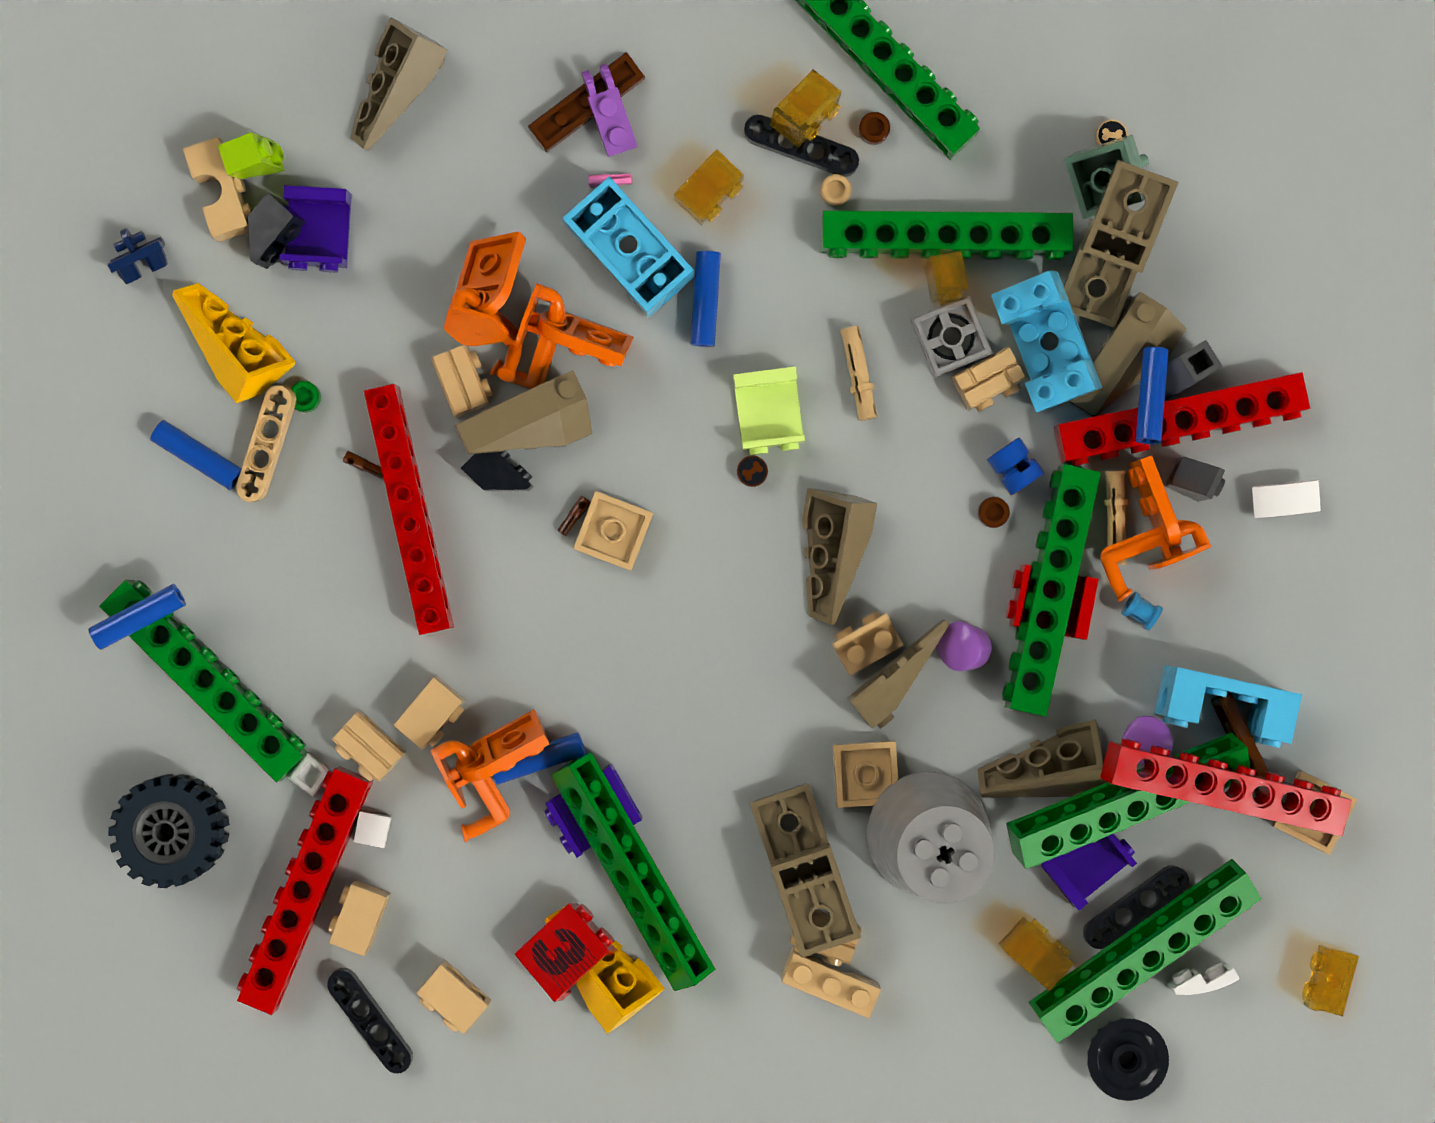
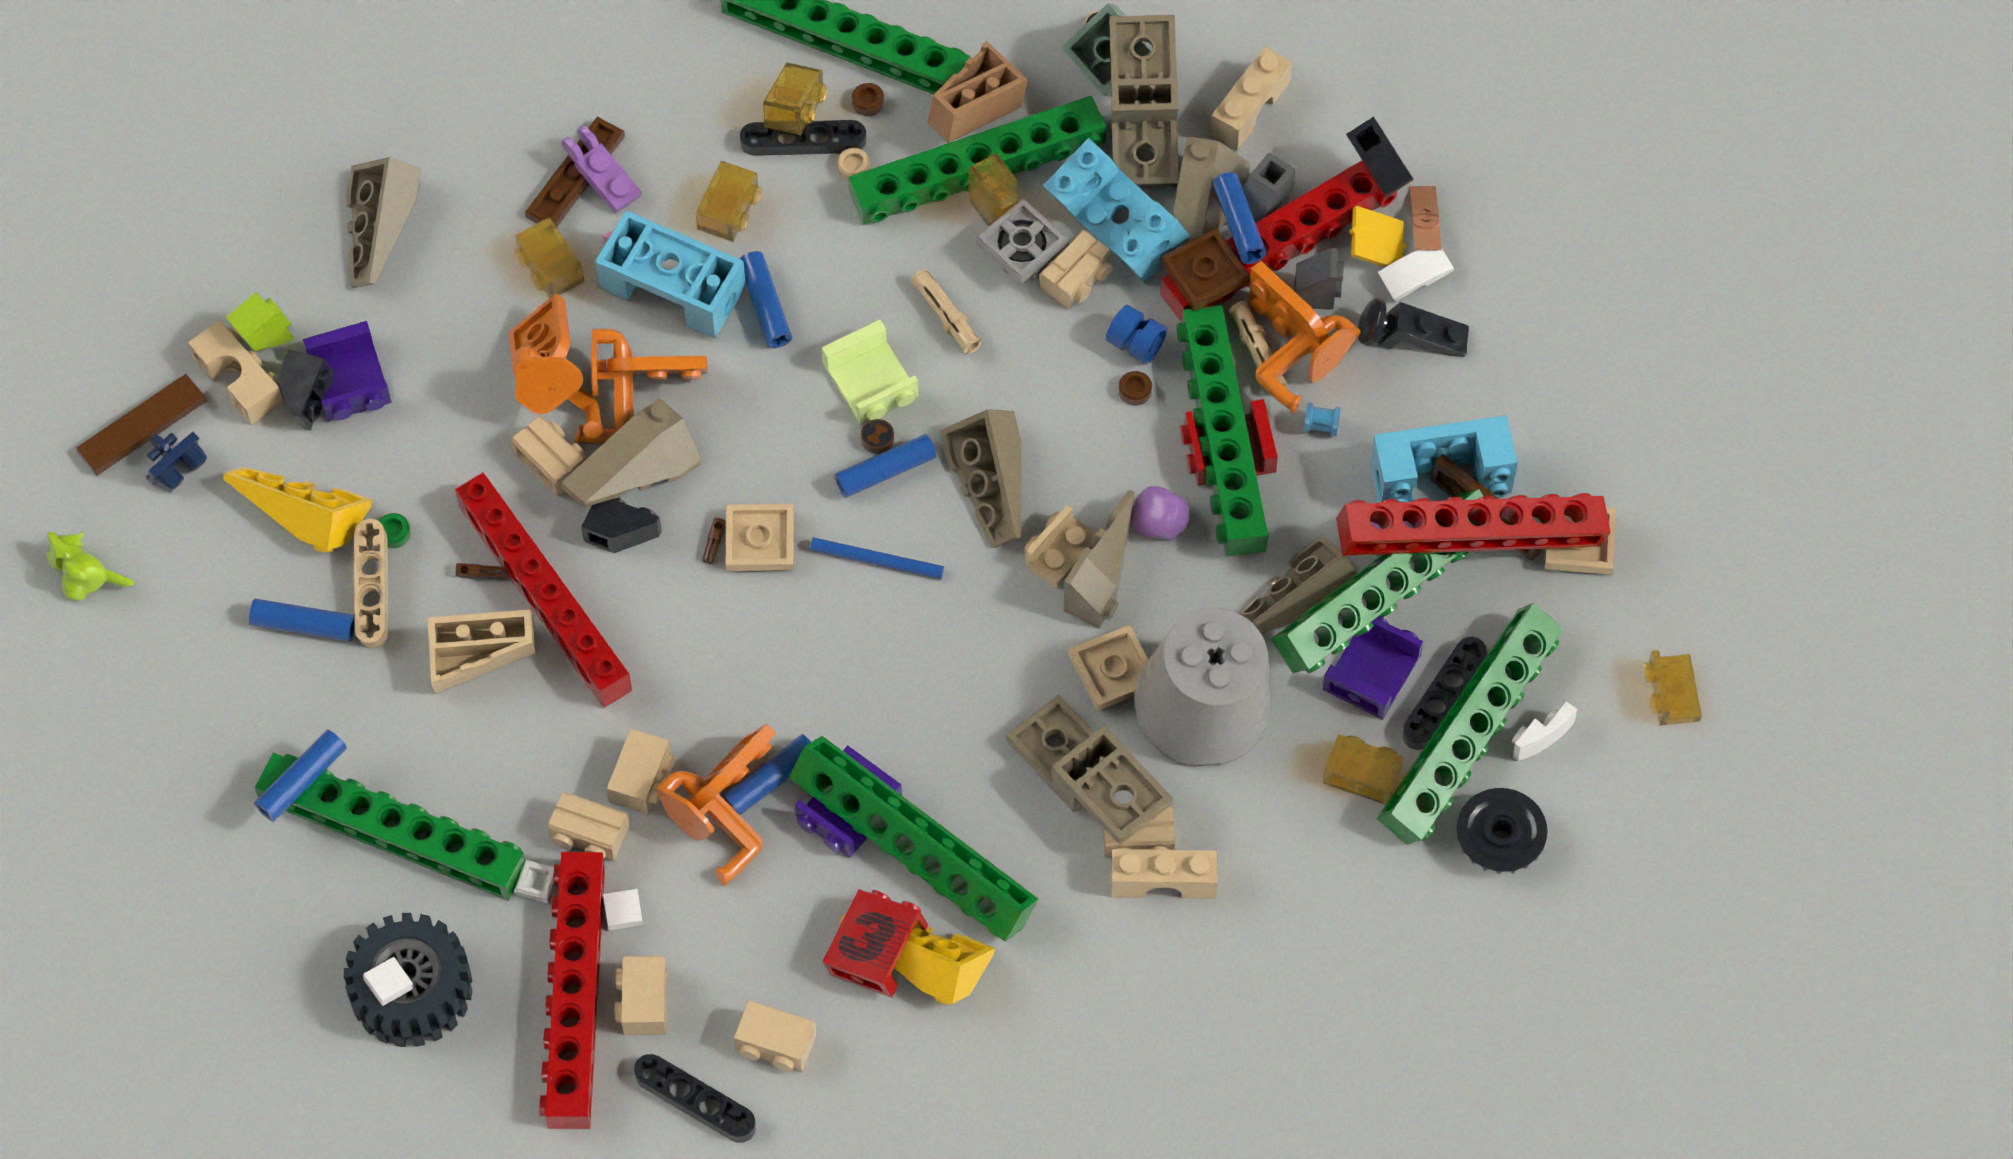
camera: 20 degrees left, 25 degrees down
(21, 334) = (81, 570): none -> lime animal
(123, 206) = (141, 424): none -> reddish brown tile
(143, 841) = (388, 981): none -> white tile
(332, 542) = (477, 644): none -> tan wedge
(530, 184) = (548, 258): none -> clear yellow brick
(706, 587) = (877, 558): none -> blue bar
(747, 504) = (885, 465): none -> blue piece
(972, 172) = (977, 95): none -> medium nougat wedge
(1100, 433) = (1205, 269): none -> reddish brown tile
(1215, 267) = (1260, 83): none -> tan arch
(1233, 542) = (1413, 326): none -> black piece
(1266, 454) = (1376, 237): none -> yellow piece
(1303, 389) = (1379, 156): none -> black slope
(1317, 449) = (1425, 218): none -> nougat piece

